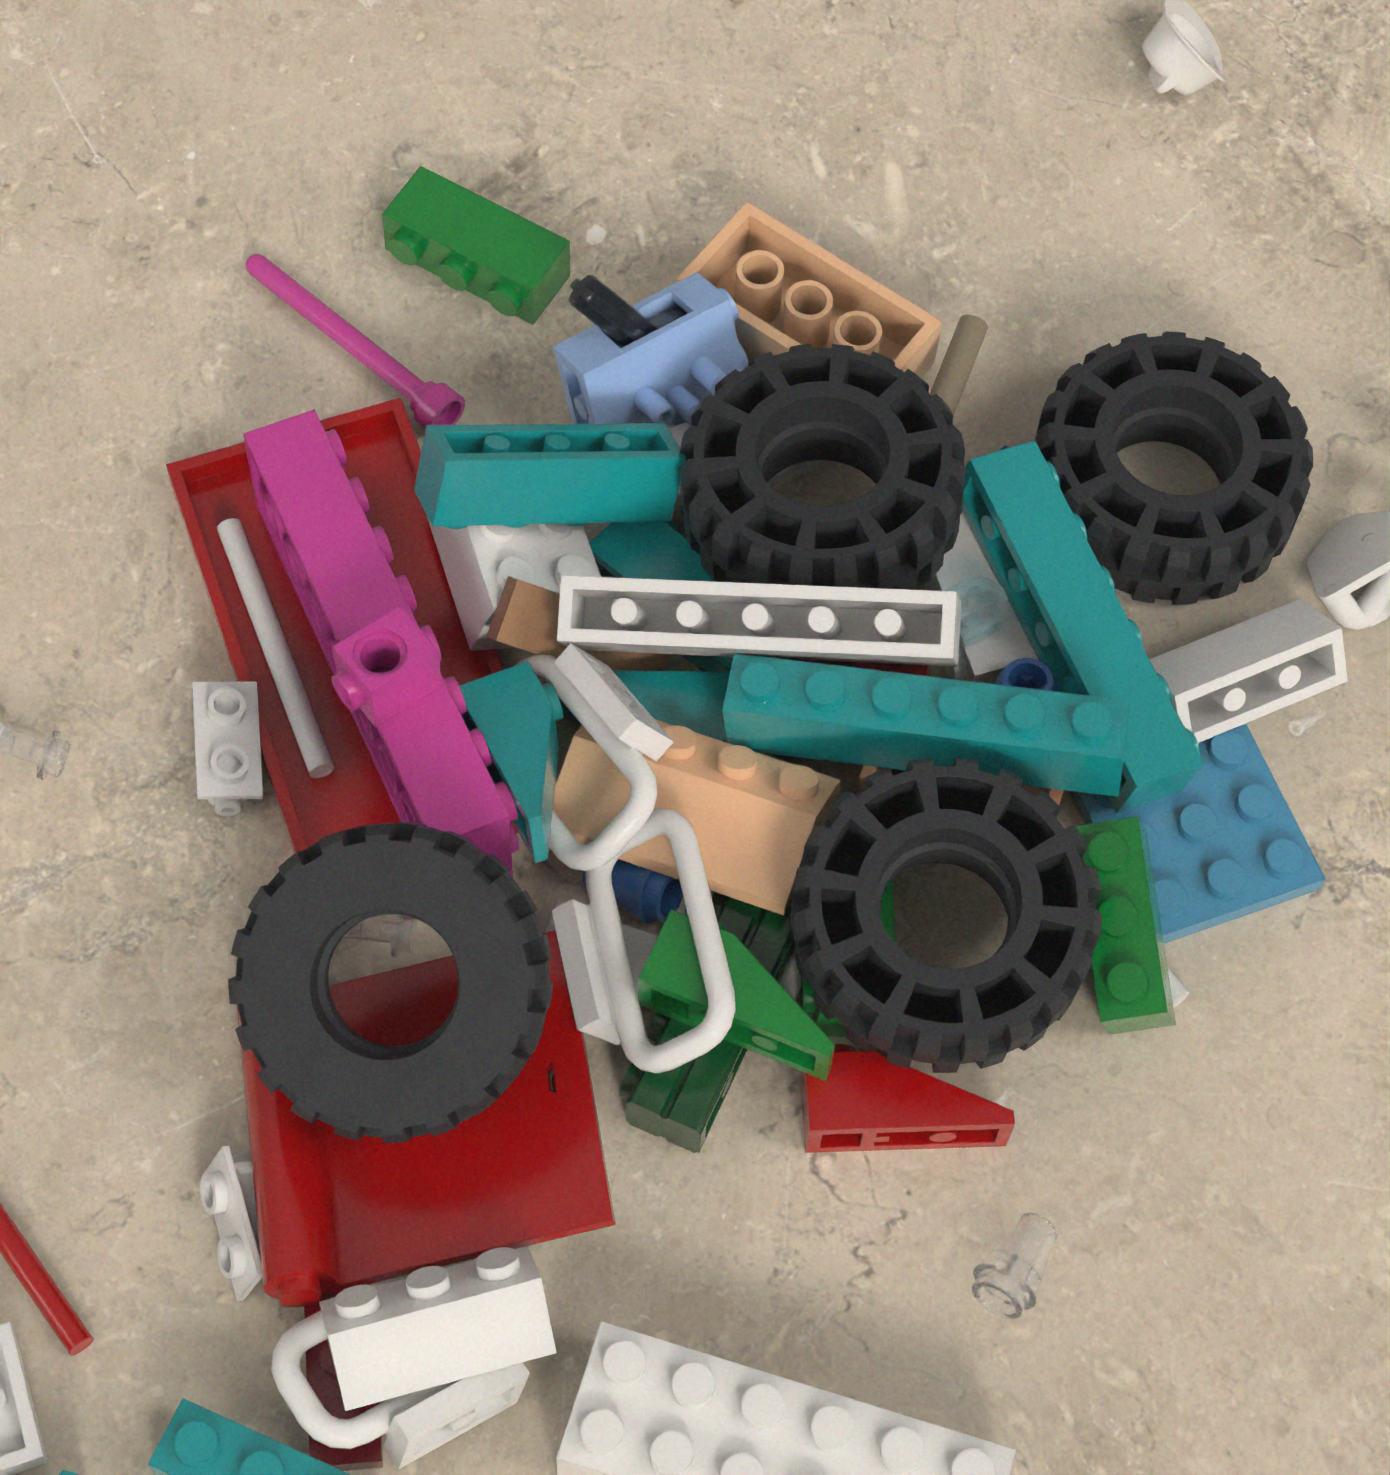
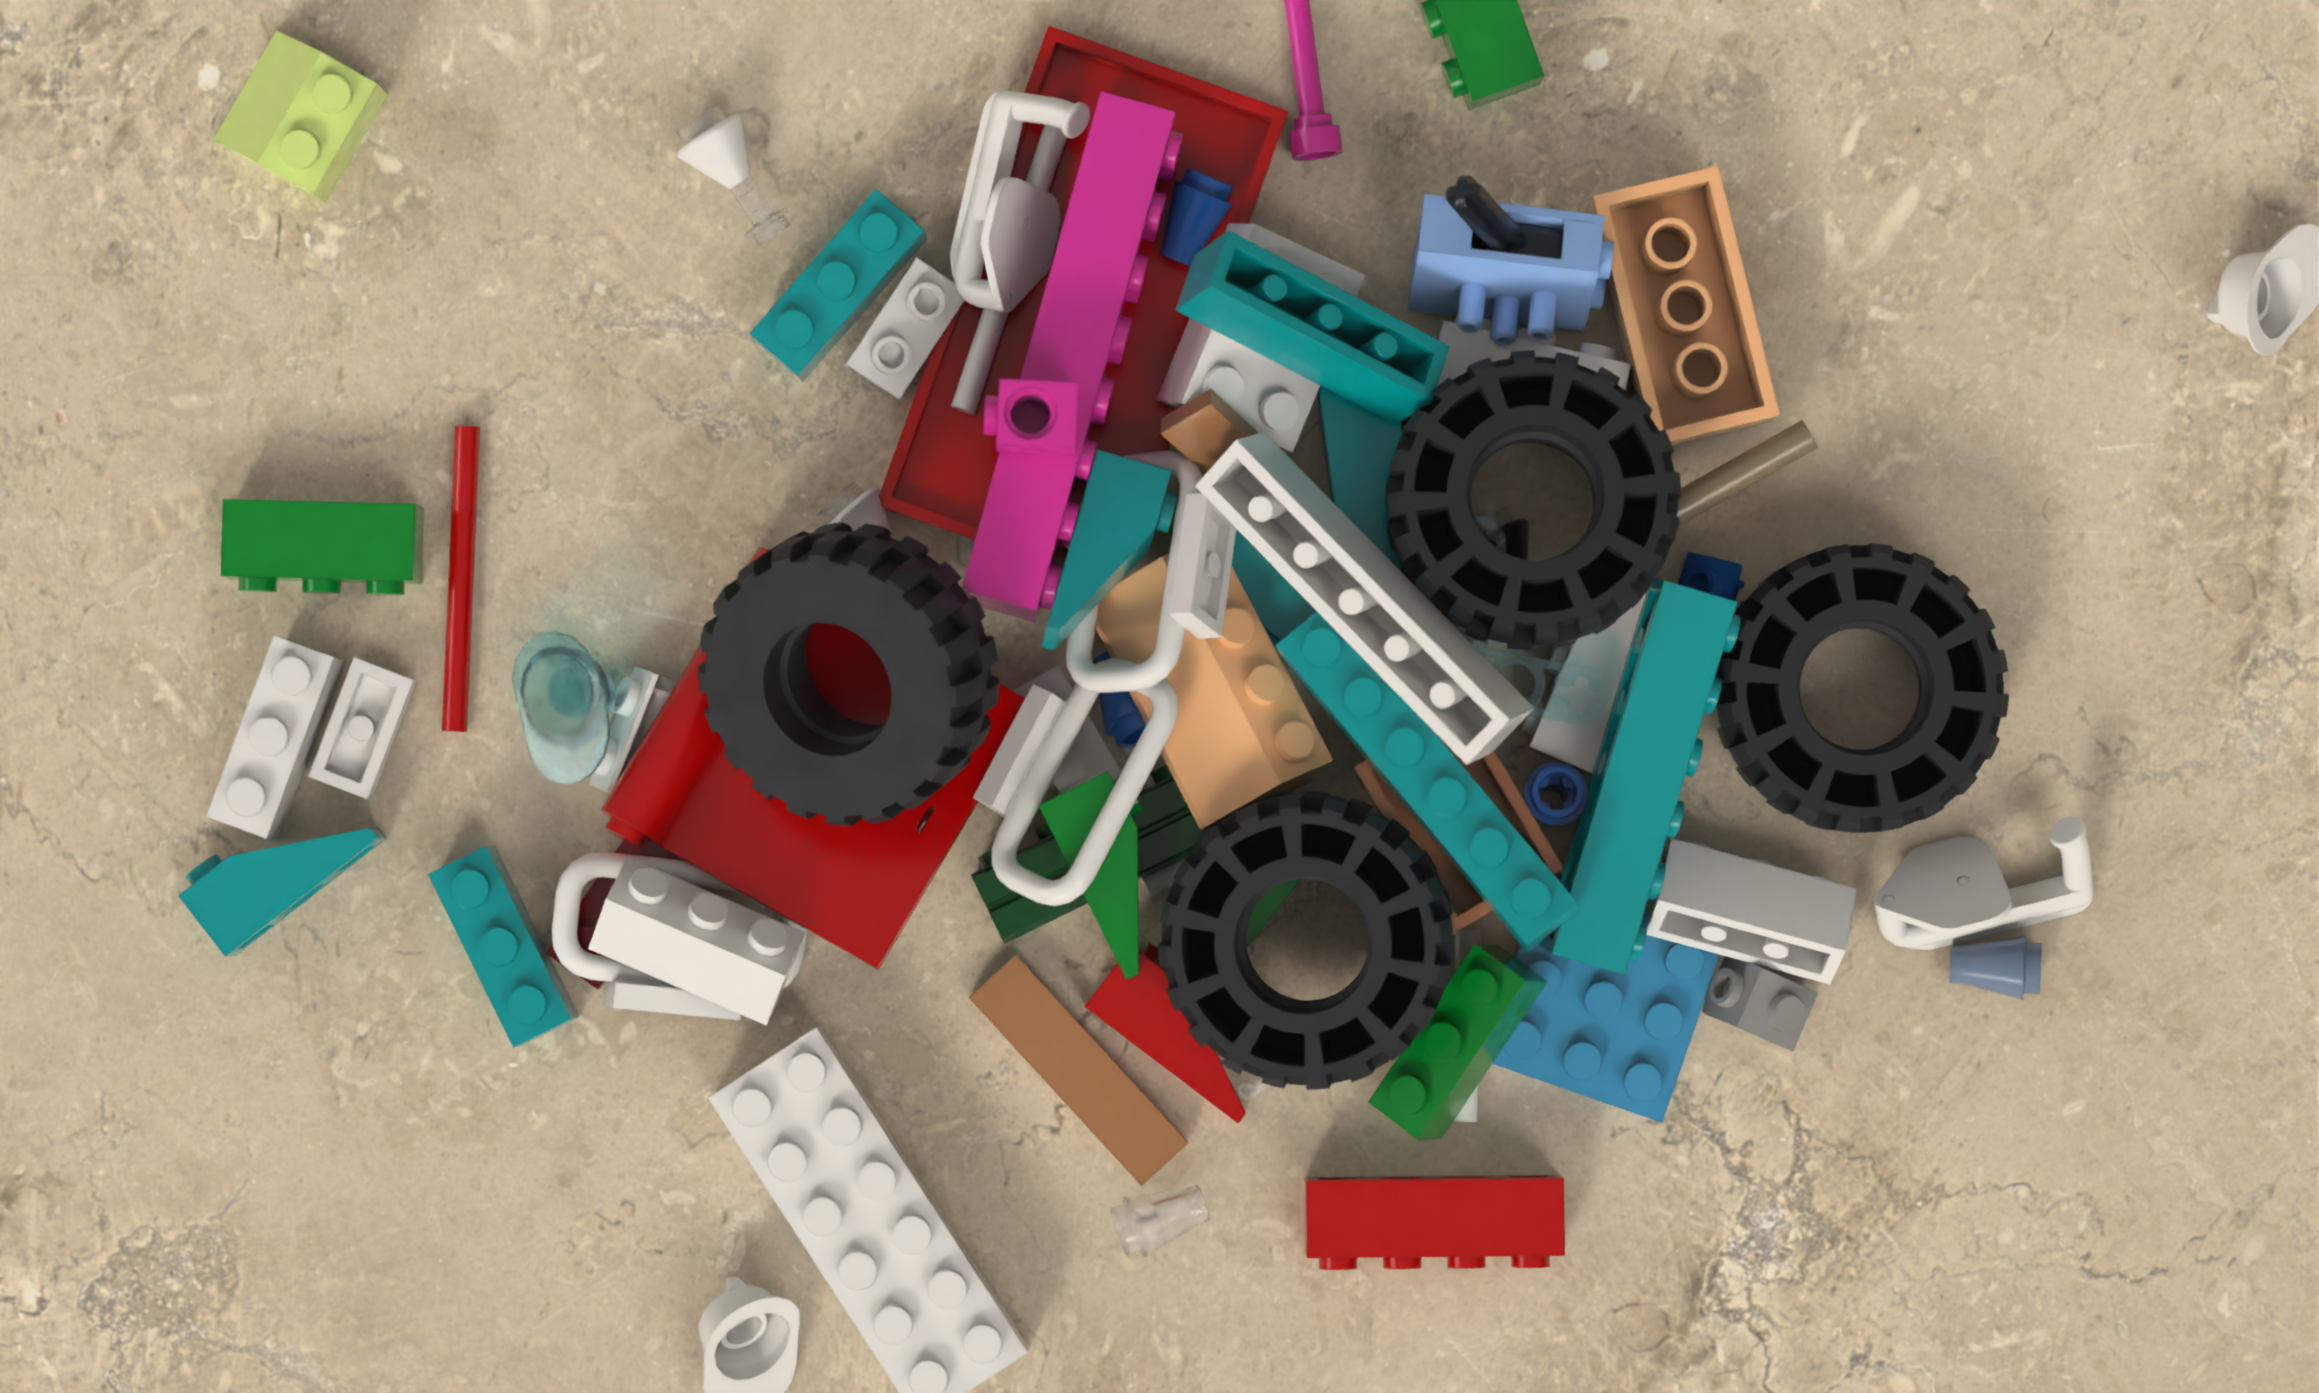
camera: 45 degrees right, 25 degrees up
(144, 753) = (839, 285): none -> teal brick
(162, 1235) = (563, 706): none -> clear light blue piece
(232, 590) = (1004, 217): none -> white piece
(392, 506) = (1194, 214): none -> blue cone
(846, 1203) = (1078, 1070): none -> medium nougat tile
(1228, 1085) = (1434, 1218): none -> red brick
(1308, 736) = (1759, 1002): none -> light grey bracket

